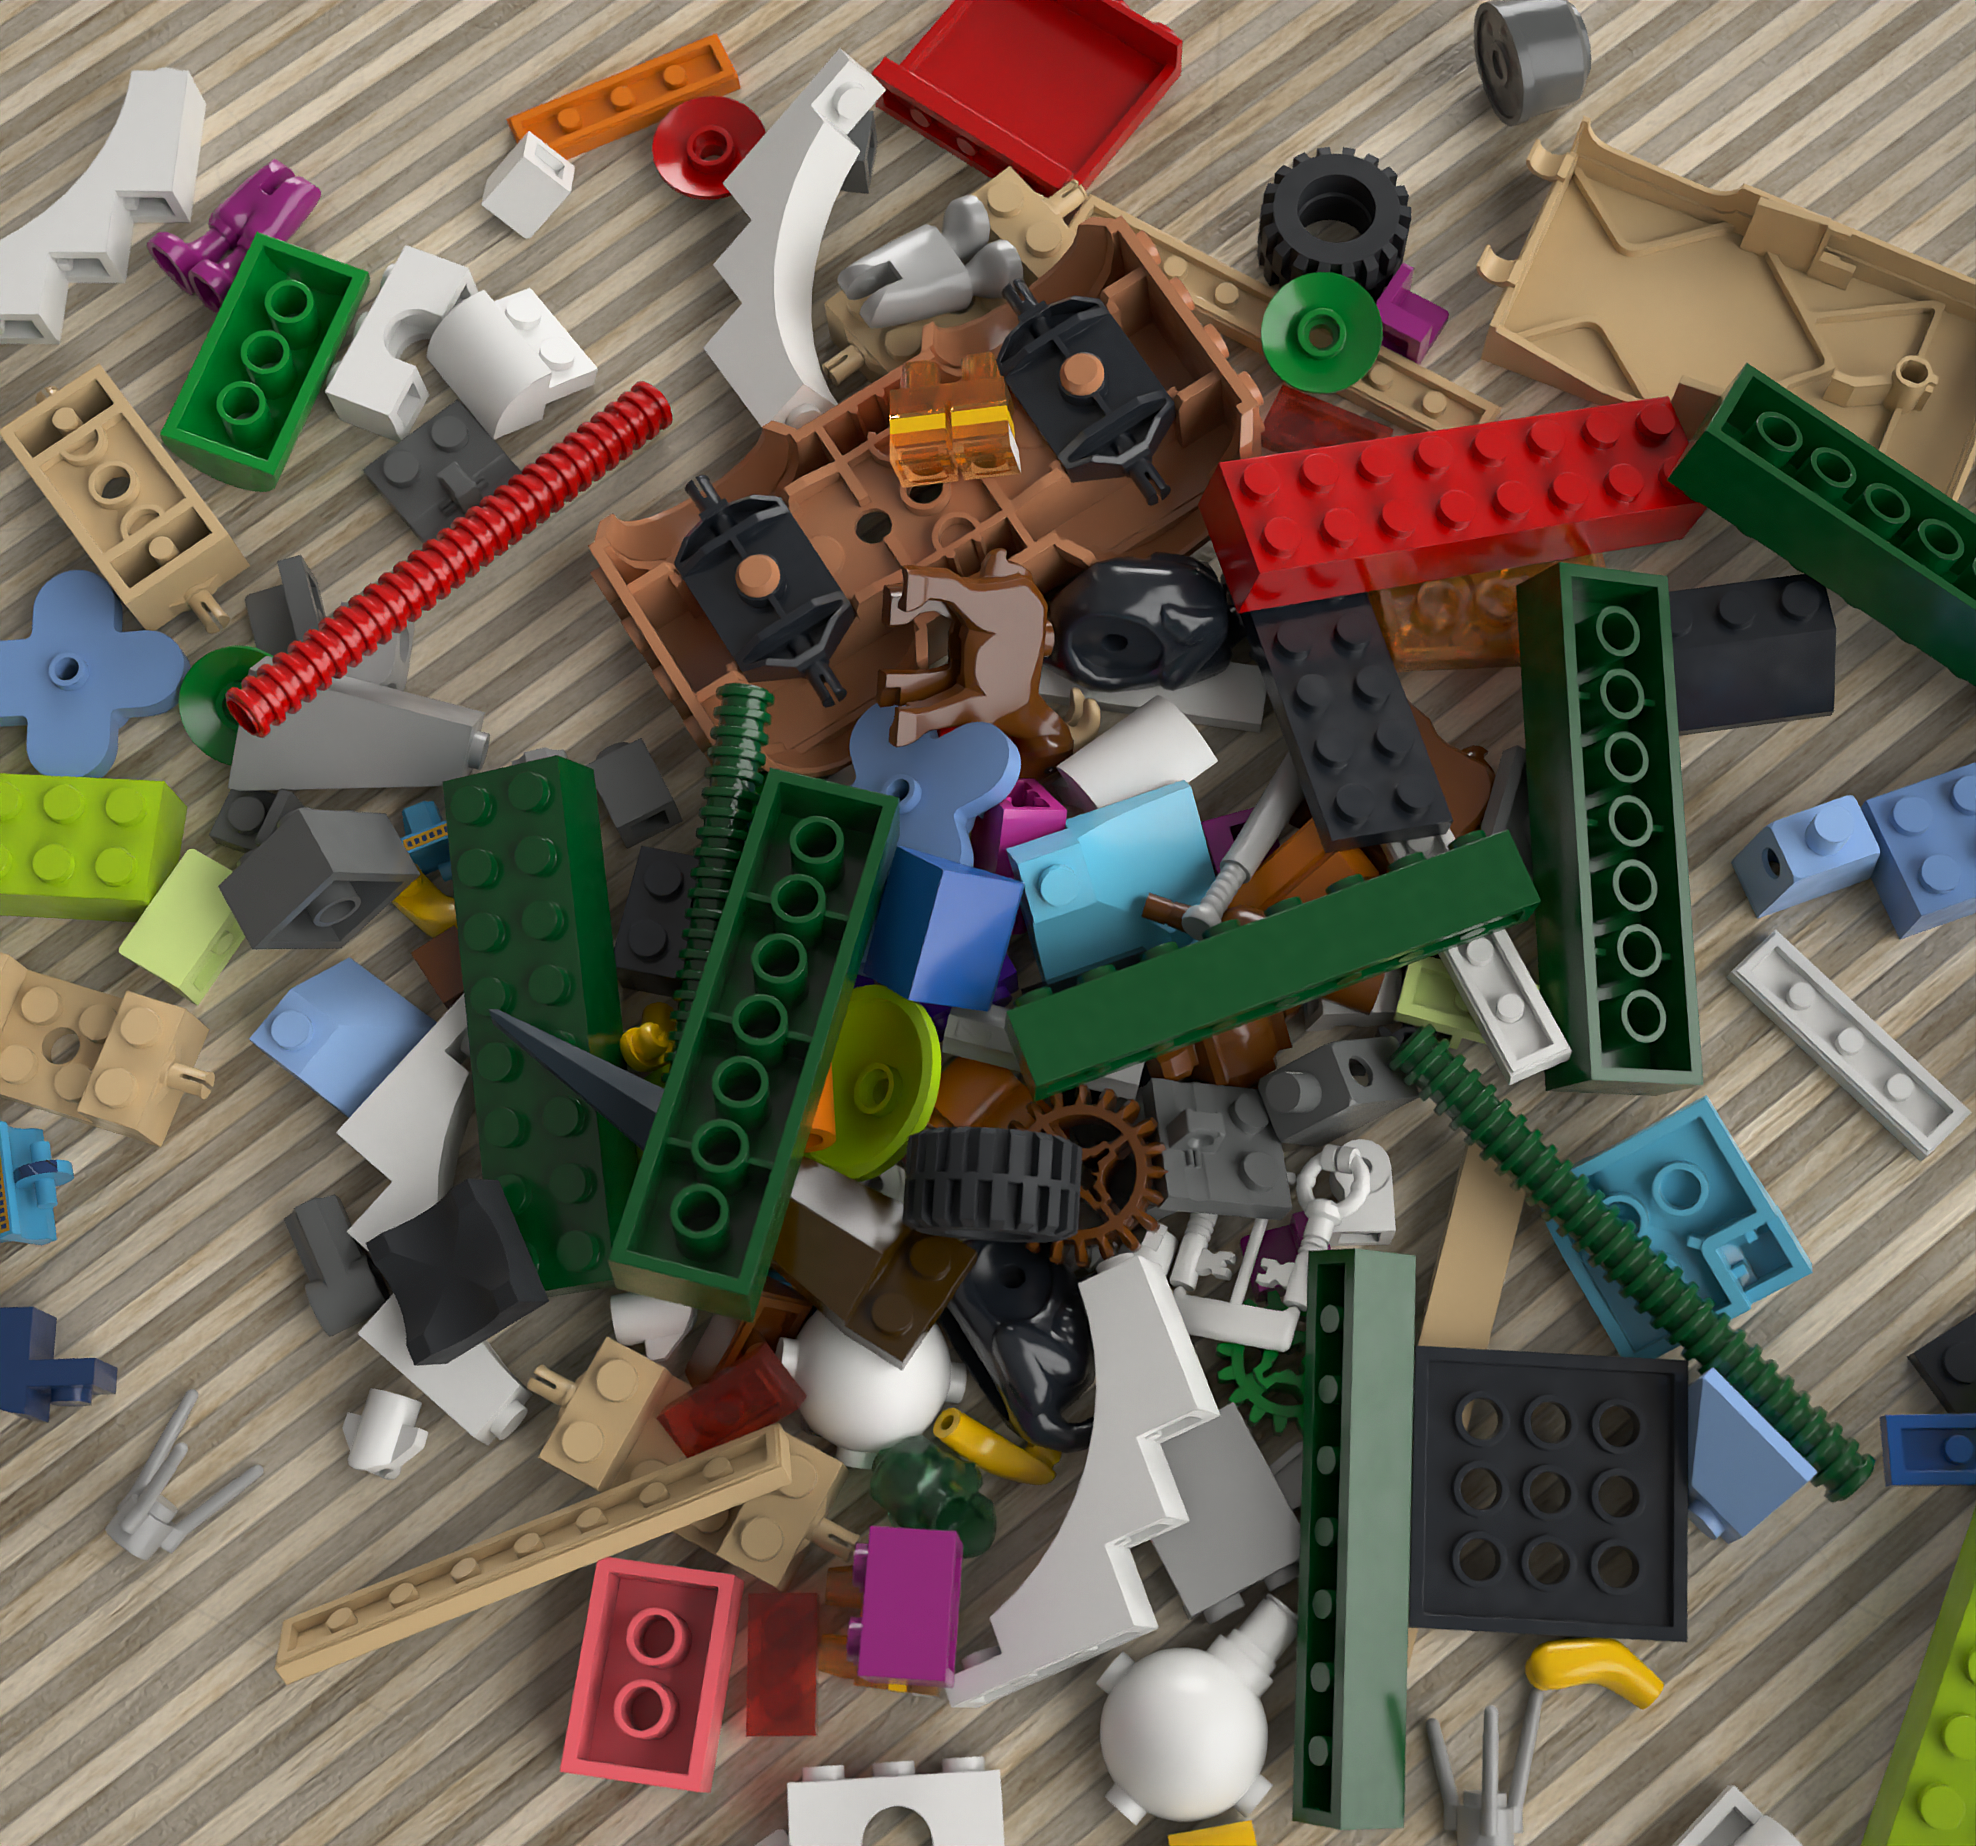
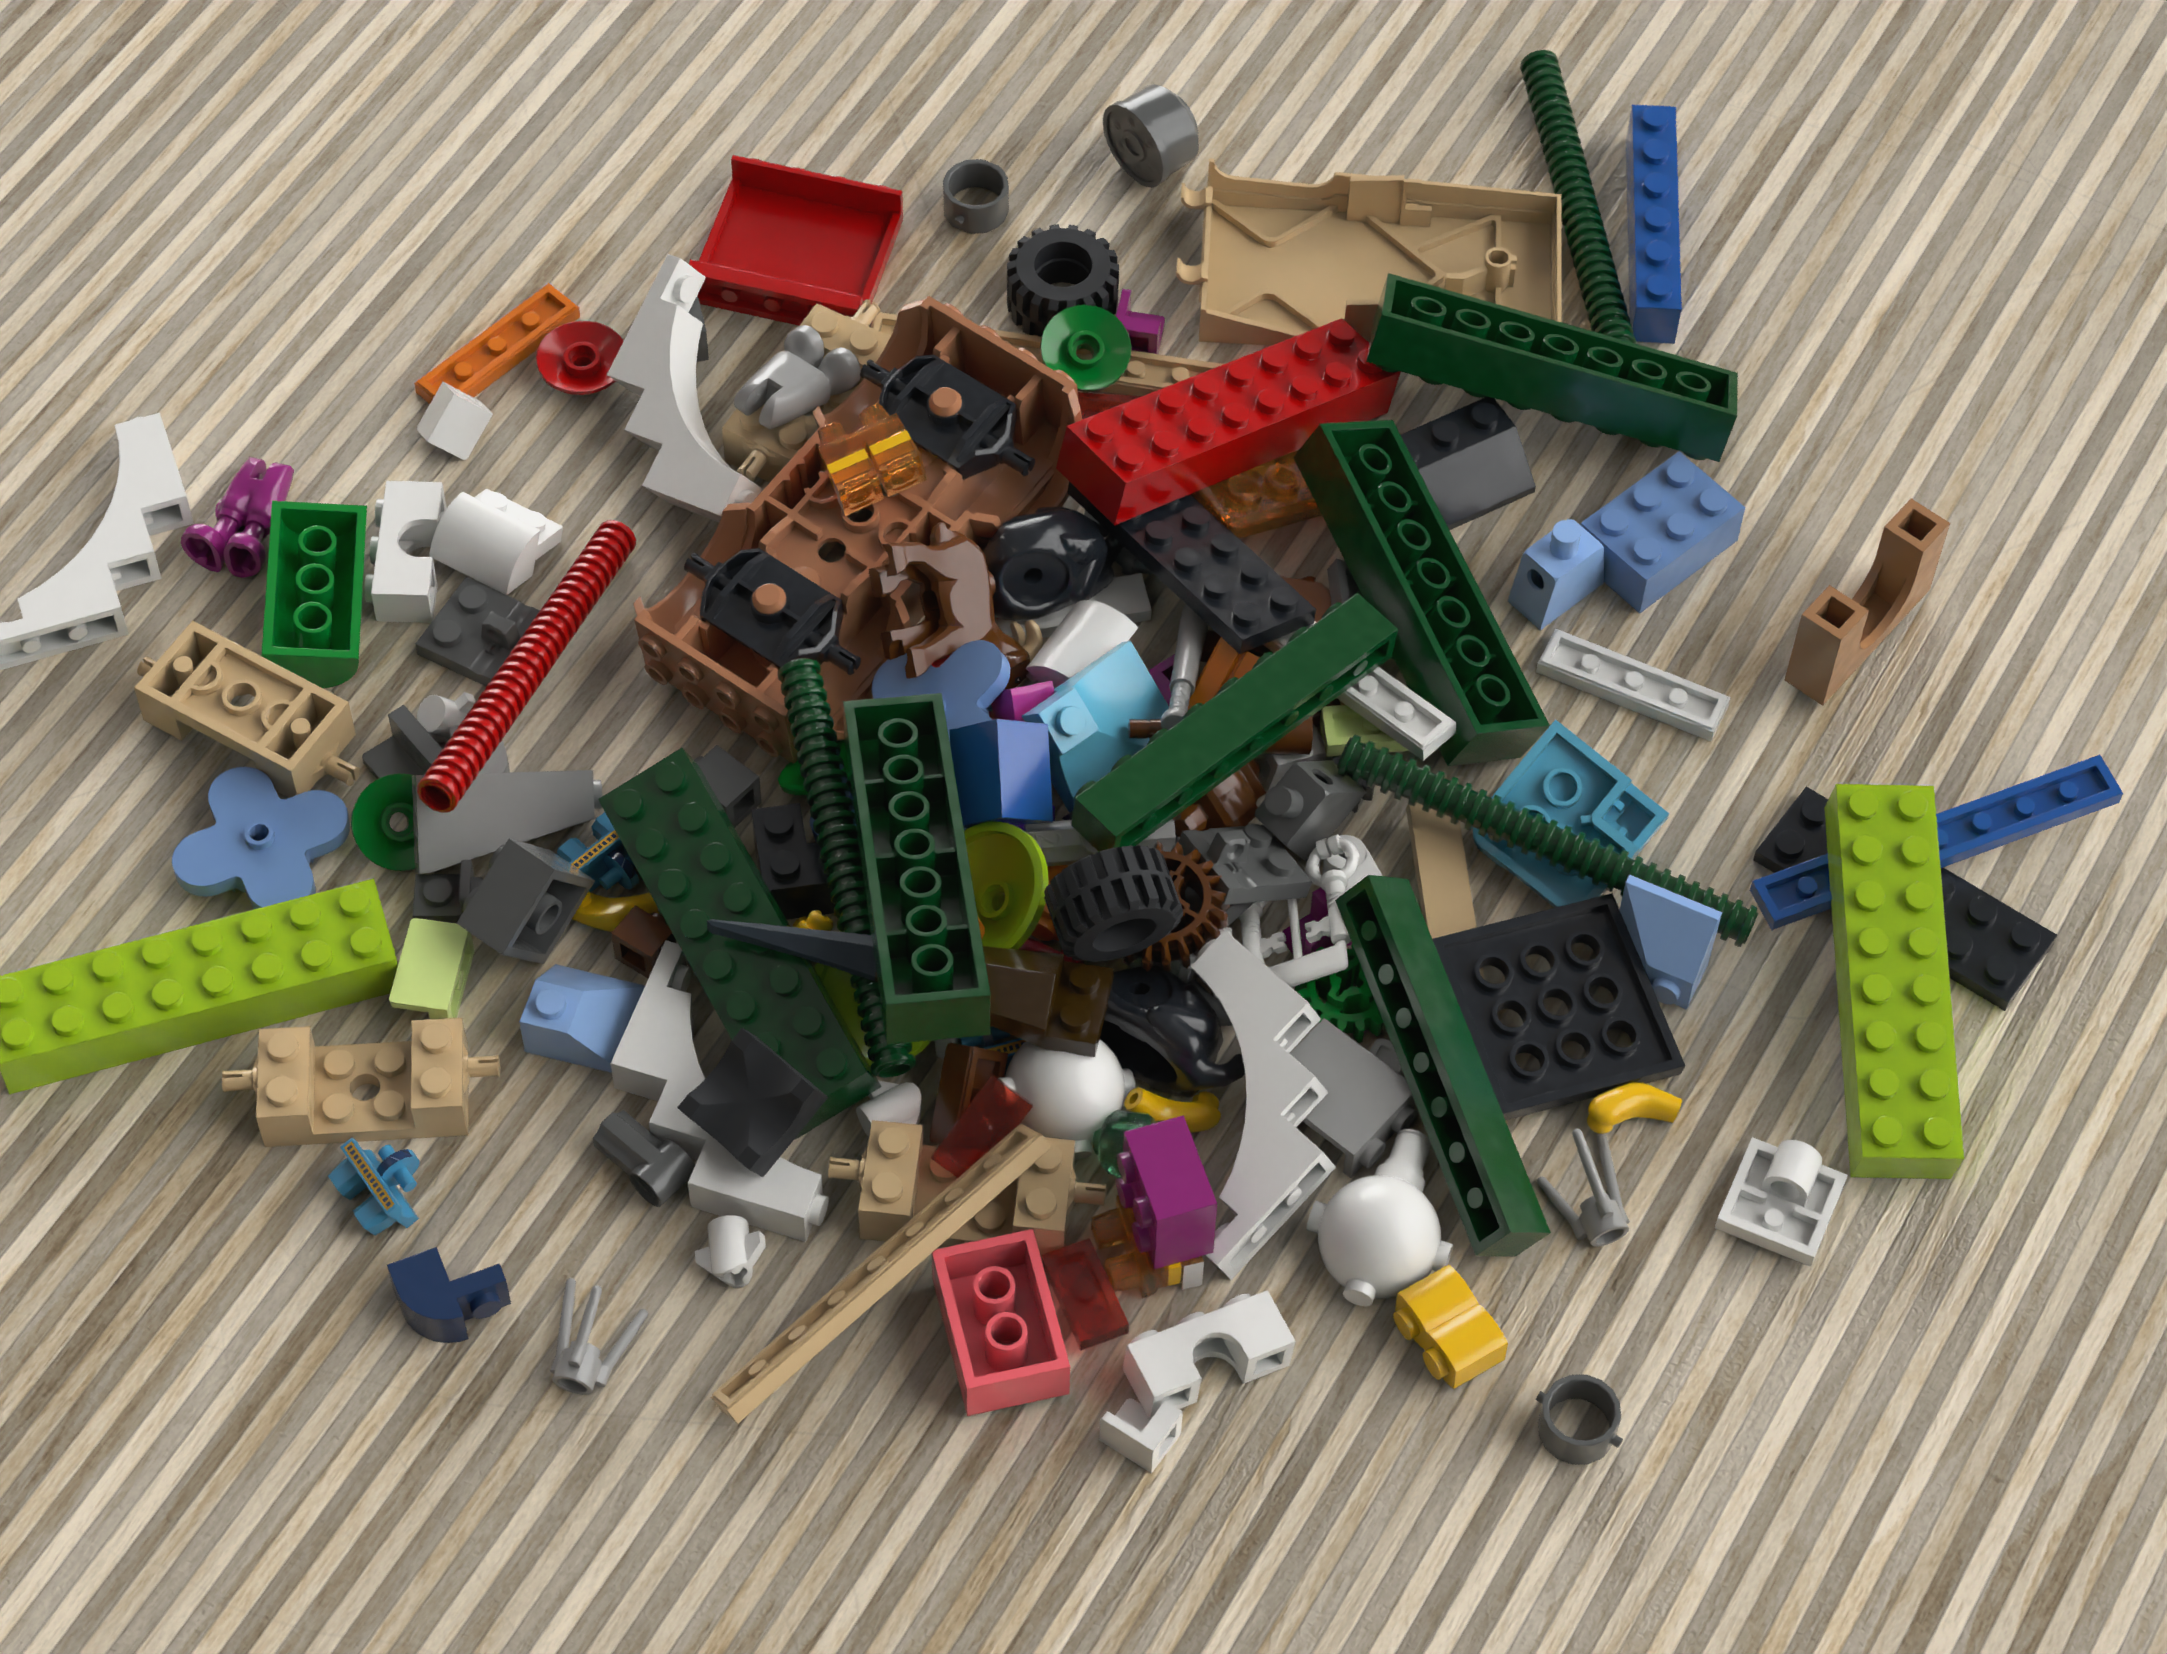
camera: 30 degrees left, 15 degrees down
(340, 579) = (439, 714): none -> white piece
(1286, 40) = (971, 175): none -> dark grey piece

